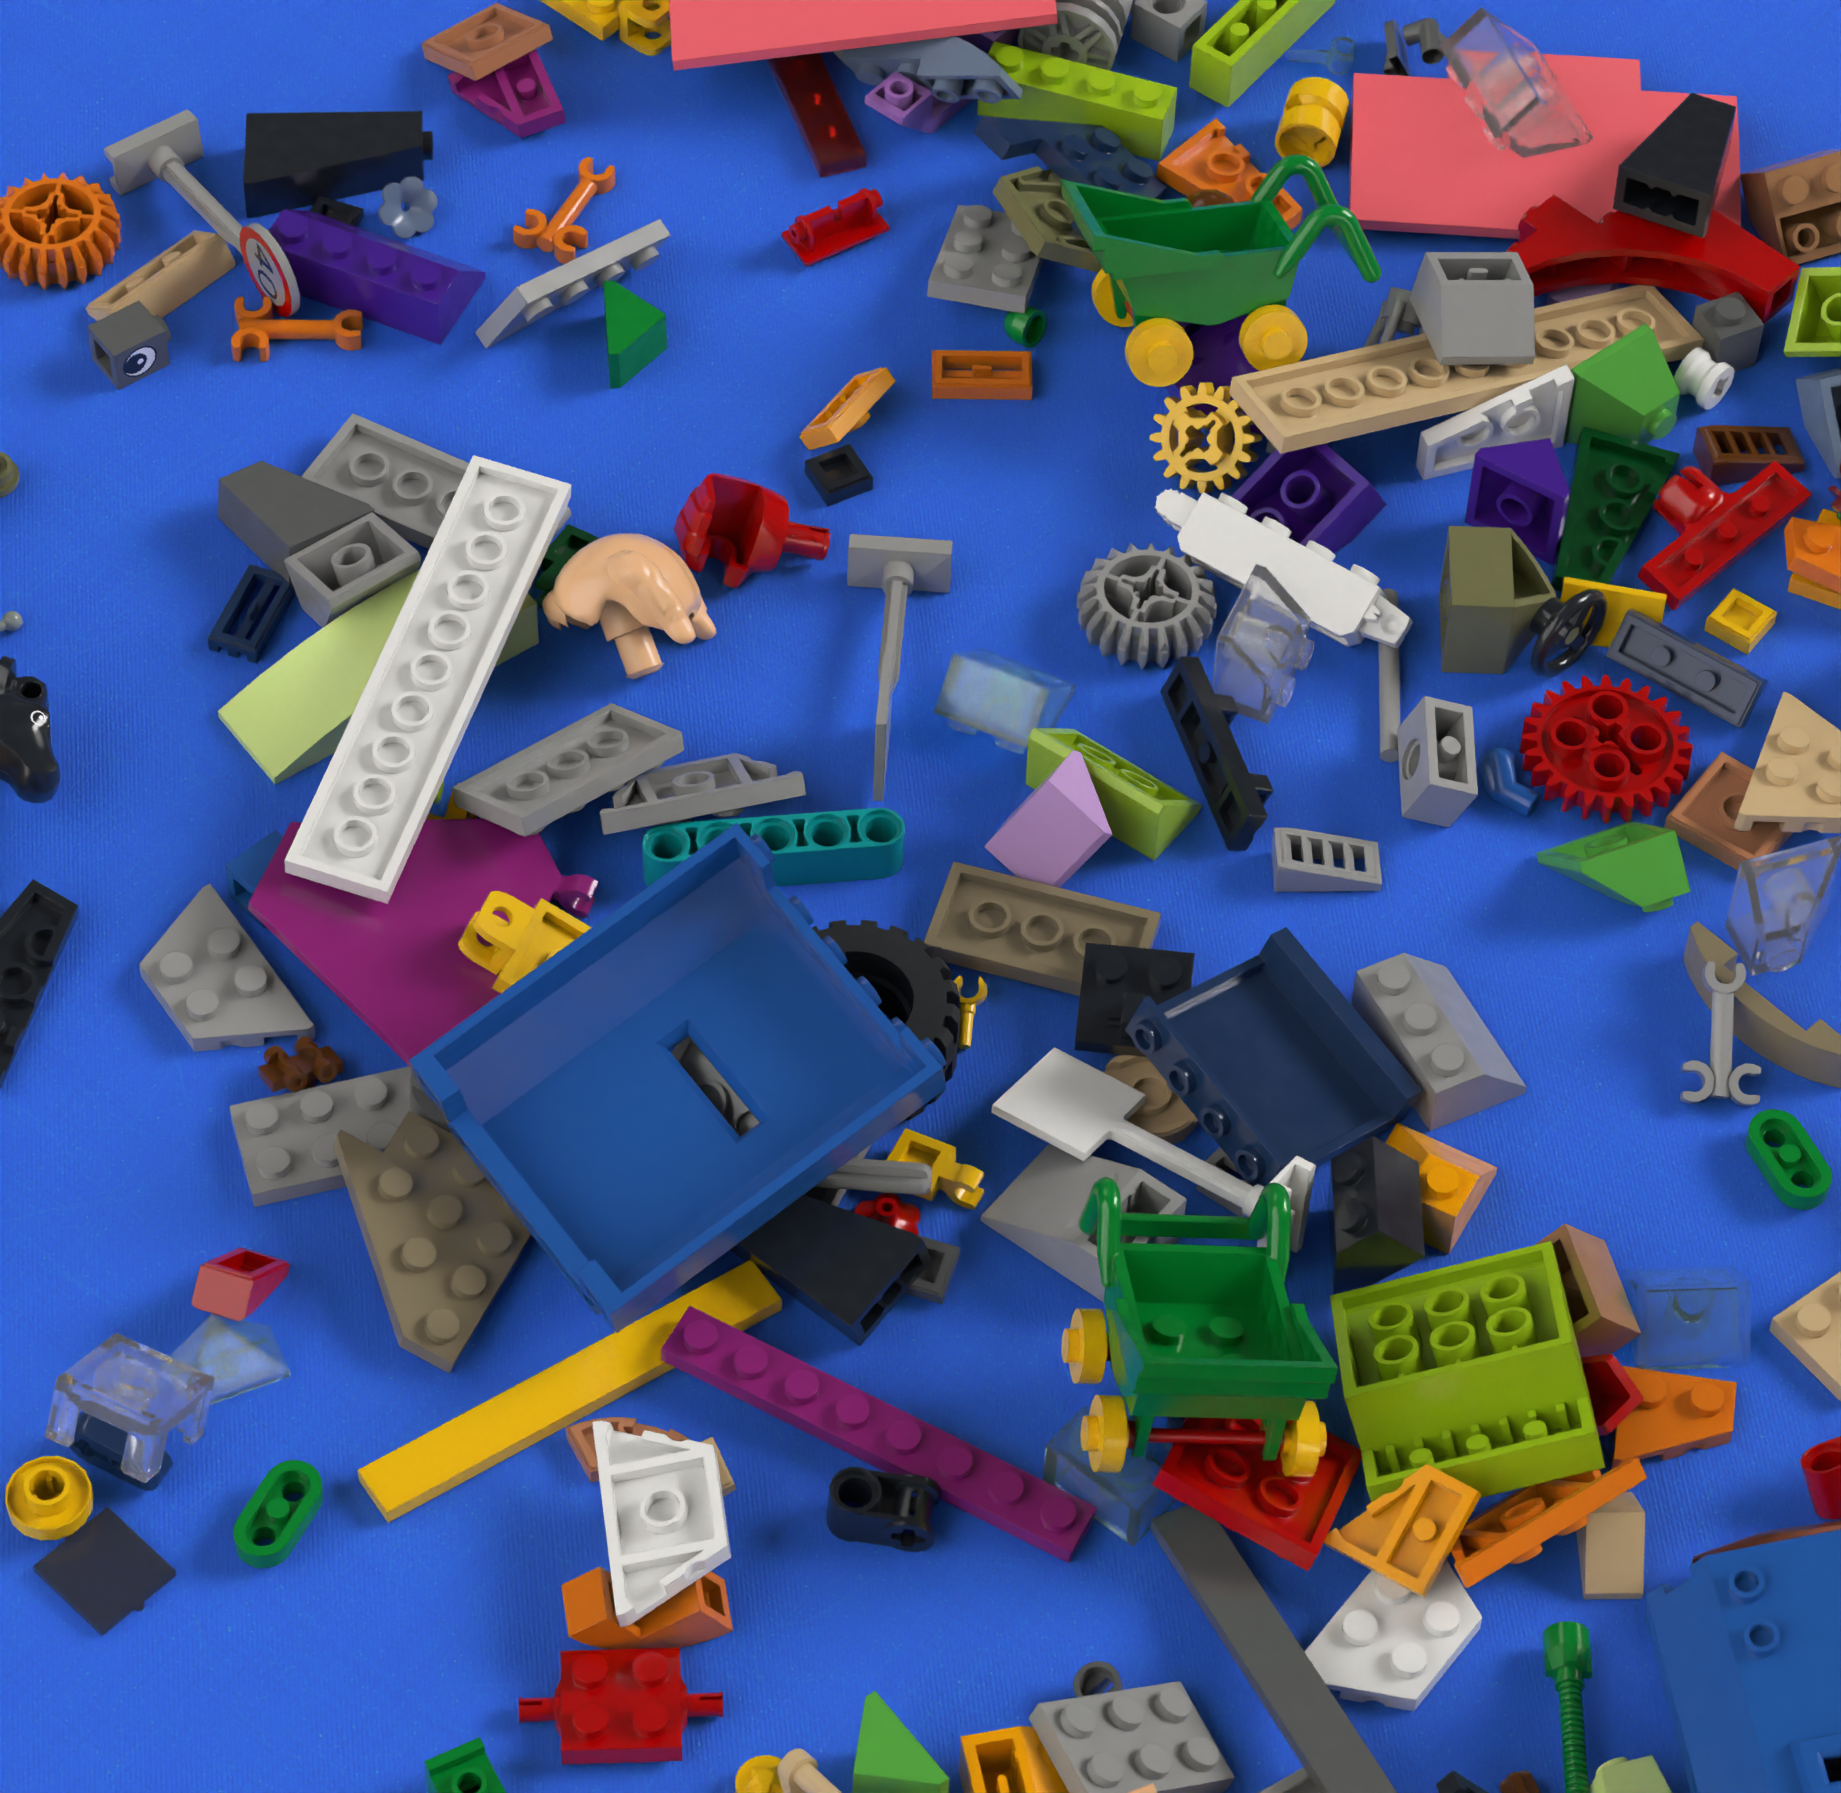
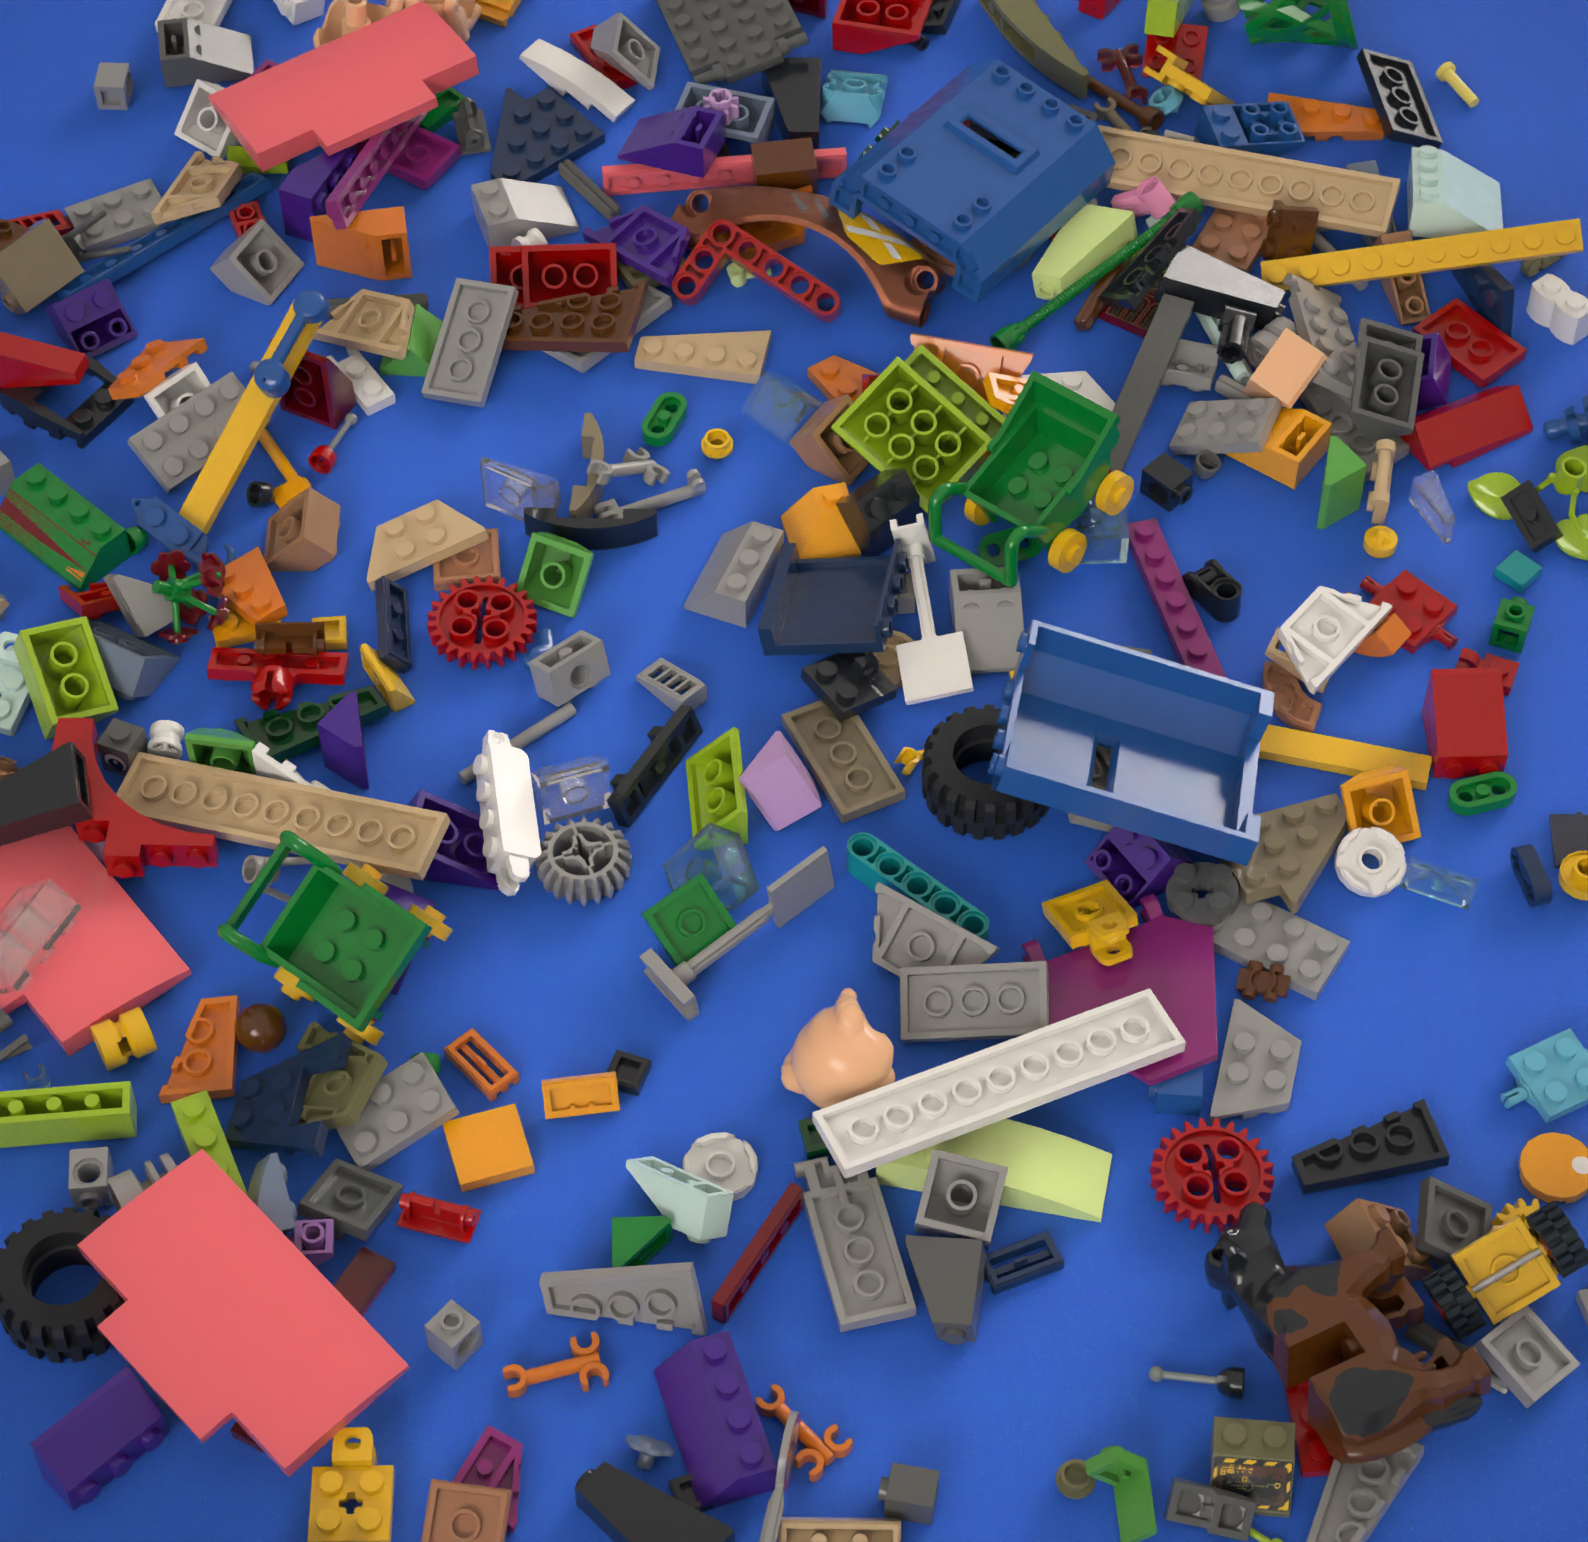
camera: 130 degrees left, 0 degrees up
(136, 1393) = (1514, 865): clear panel -> none
(143, 824) = (1176, 1178): none -> red gear
(237, 1283) = (1418, 895): slope -> none
(327, 1330) = (1362, 879): none -> white tile
(378, 1568) = (1465, 722): none -> red slope
(382, 1379) = (1383, 801): none -> light orange slope
(429, 1712) = (1470, 659): none -> red plate
(501, 401) = (757, 1253): none -> dark red tile
(638, 394) = (691, 1202): none -> light aqua slope
(641, 468) = (724, 1162): none -> white tile
(686, 148) = (453, 1334): none -> light grey brick
(742, 528) = (727, 1065): red piece -> none
(874, 317) = (488, 1147): none -> light orange tile
(923, 167) = (352, 1198): none -> dark grey hinge
(950, 614) = (688, 919): none -> green hinge
(1112, 1612) = (1167, 482): none -> black brick
(1188, 451) = (448, 897): yellow gear -> none
(1476, 307) = (247, 813): light grey slope -> none
(1497, 602) = (440, 703): olive piece -> none
(1636, 1102) = (694, 487): none -> light grey hinge
(1653, 939) = (595, 533): none -> black slope
(1693, 1175) = (717, 444): none -> yellow plate
(1720, 458) = (213, 714): reddish brown slope -> none
(1729, 562) = (294, 636): none -> reddish brown hinge

